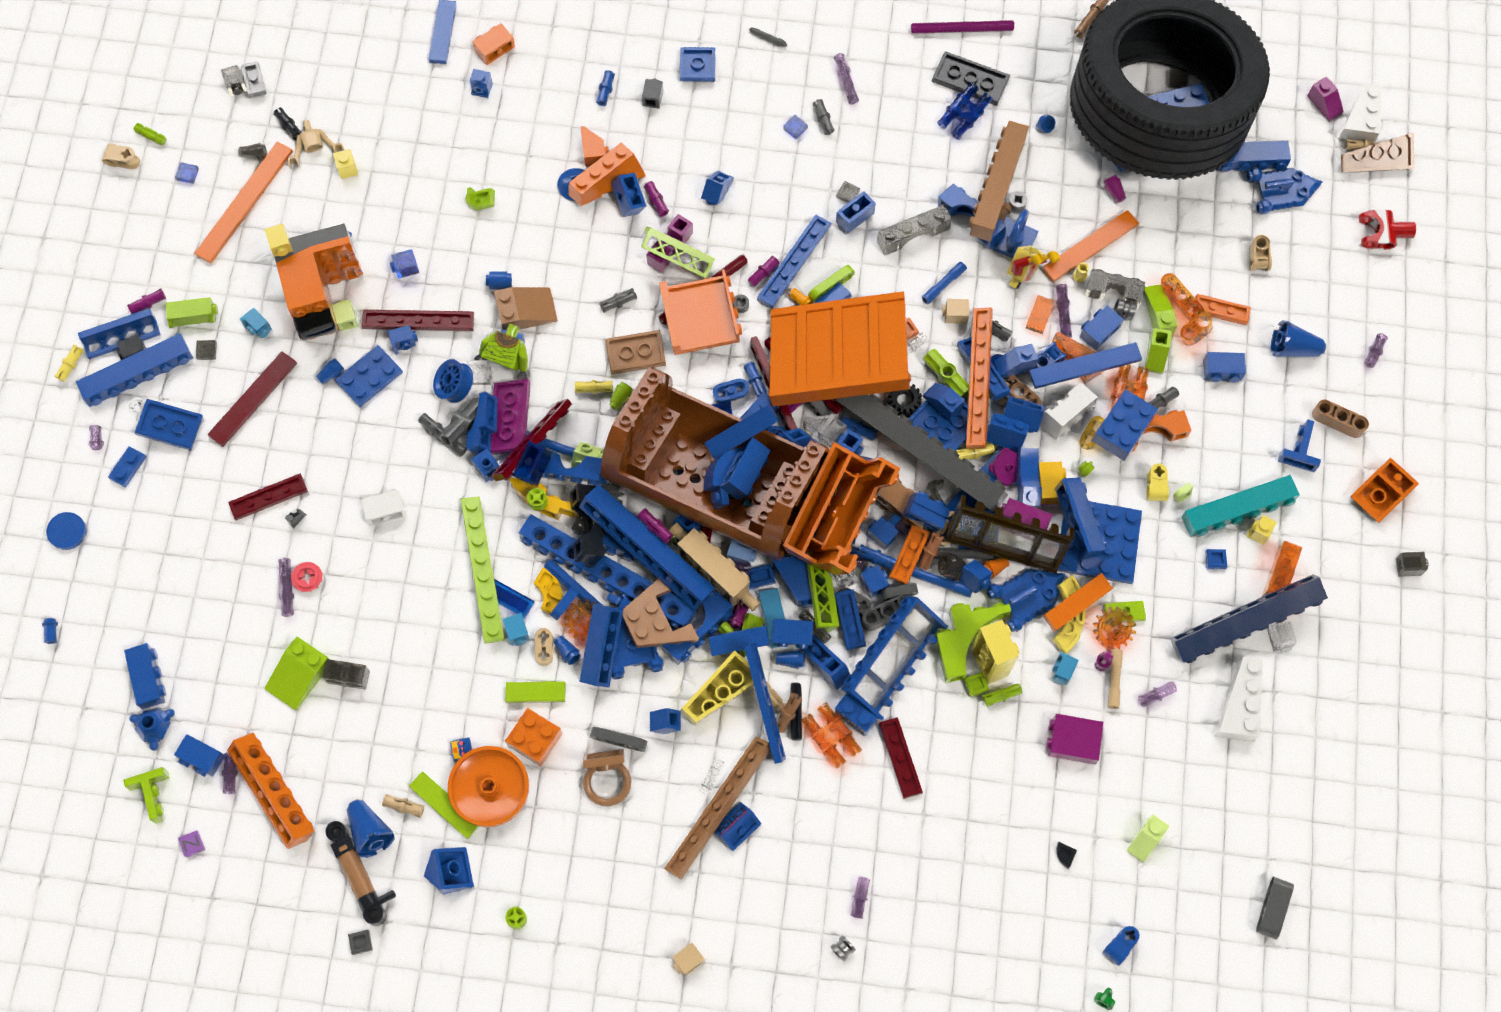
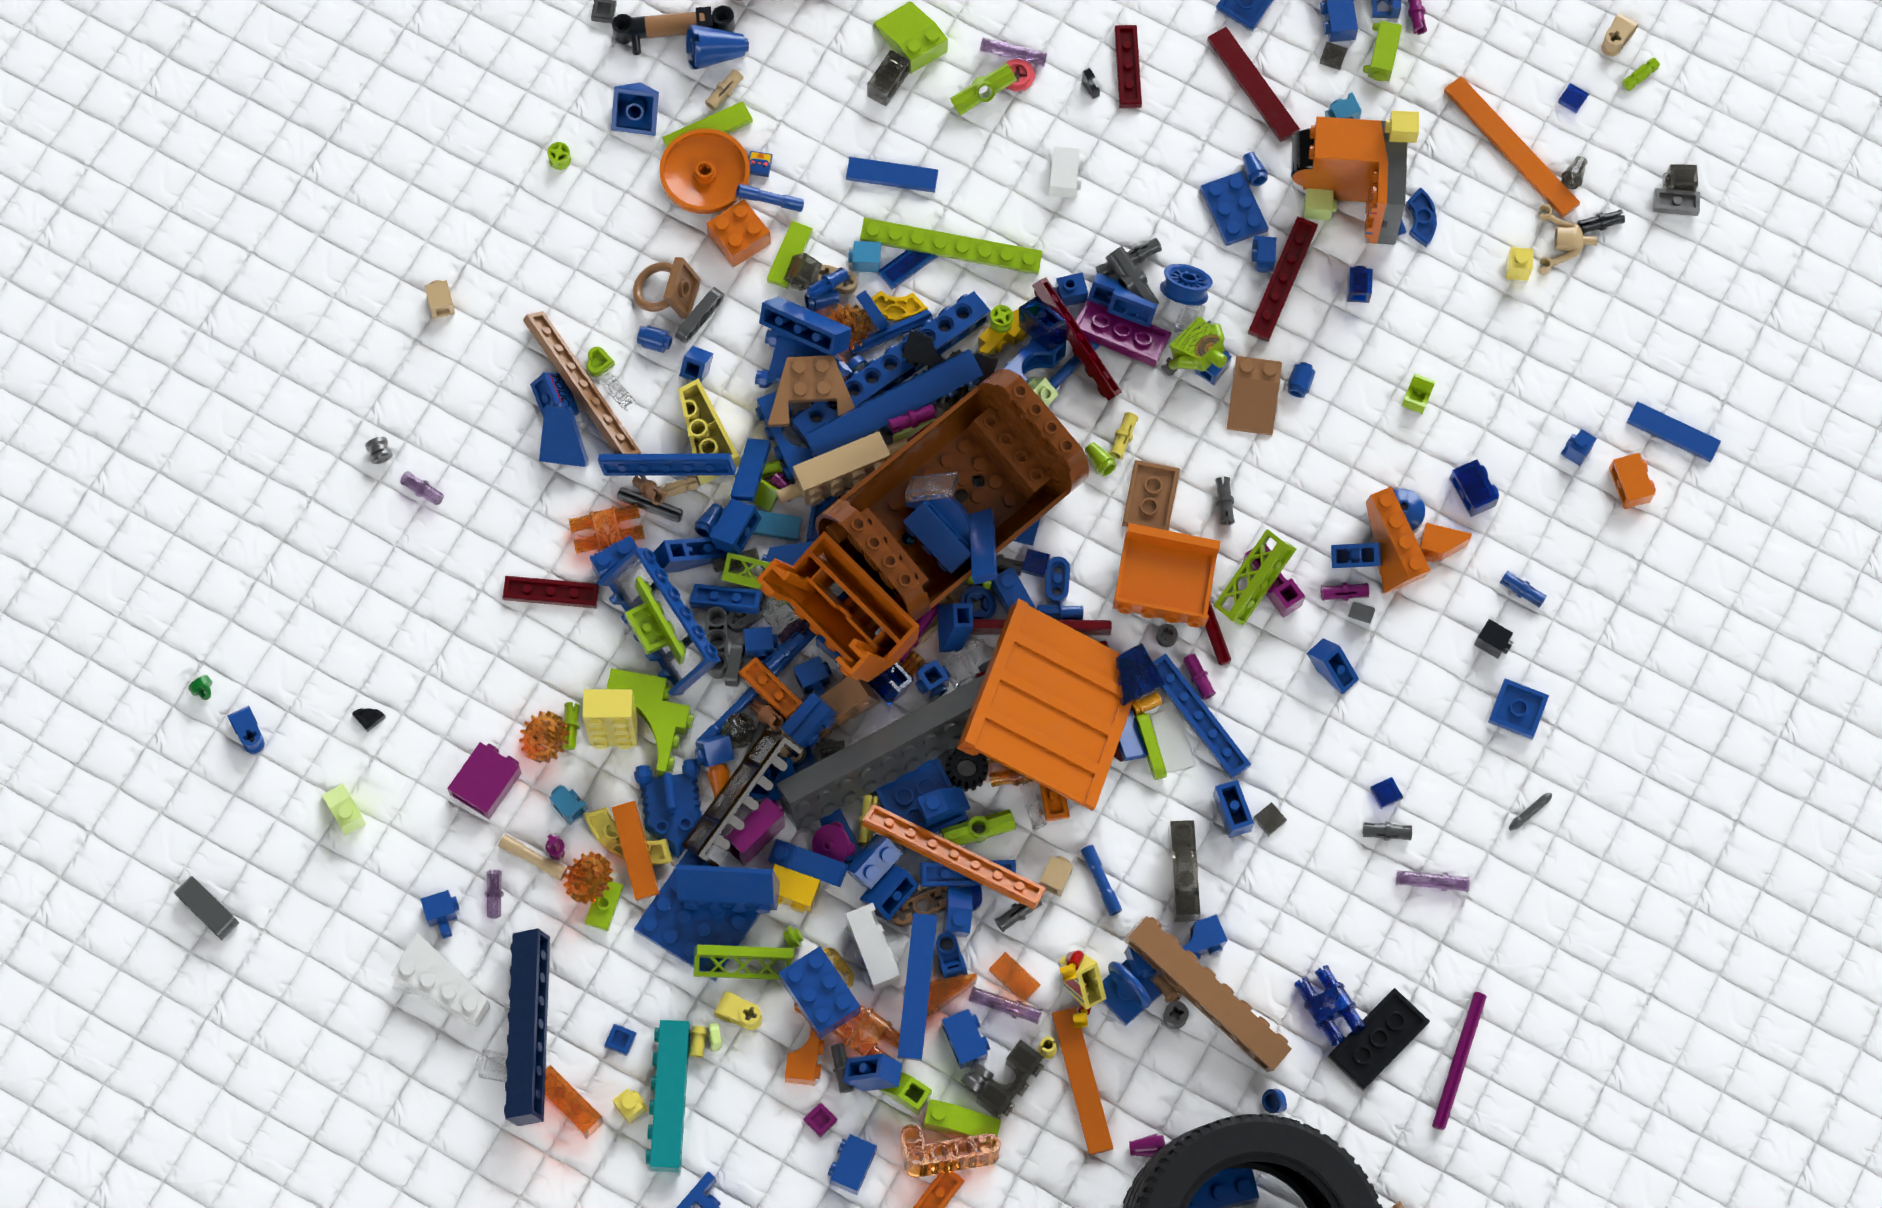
camera: 110 degrees right, 0 degrees up
(331, 594) = (970, 96): none -> lime piece
(433, 640) = (892, 174): none -> blue tile
(496, 733) = (755, 194): none -> blue piece
(540, 139) = (1474, 487): none -> clear blue brick
(550, 671) = (802, 271): none -> clear smoke brick
(555, 645) = (828, 283): none -> blue axle
(653, 766) = (654, 338): none -> blue brick
(668, 181) = (1361, 612): none -> dark grey tile
(690, 804) = (598, 362): none -> lime tile
(709, 485) = (931, 486): none -> clear tile
(774, 800) = (561, 437): none -> blue slope
(784, 306) = (1137, 674): none -> clear blue slope
(902, 659) = (651, 626): none -> lime bracket
(1025, 699) = (542, 747): none -> clear orange gear
(1120, 496) = (737, 953): none -> lime fence
(1160, 372) = (872, 1072): none -> blue brick
(1187, 504) = (697, 1043): none -> light yellow pin
(1189, 727) = (439, 910): none -> blue brick
(1202, 402) = (820, 1120): none -> magenta tile

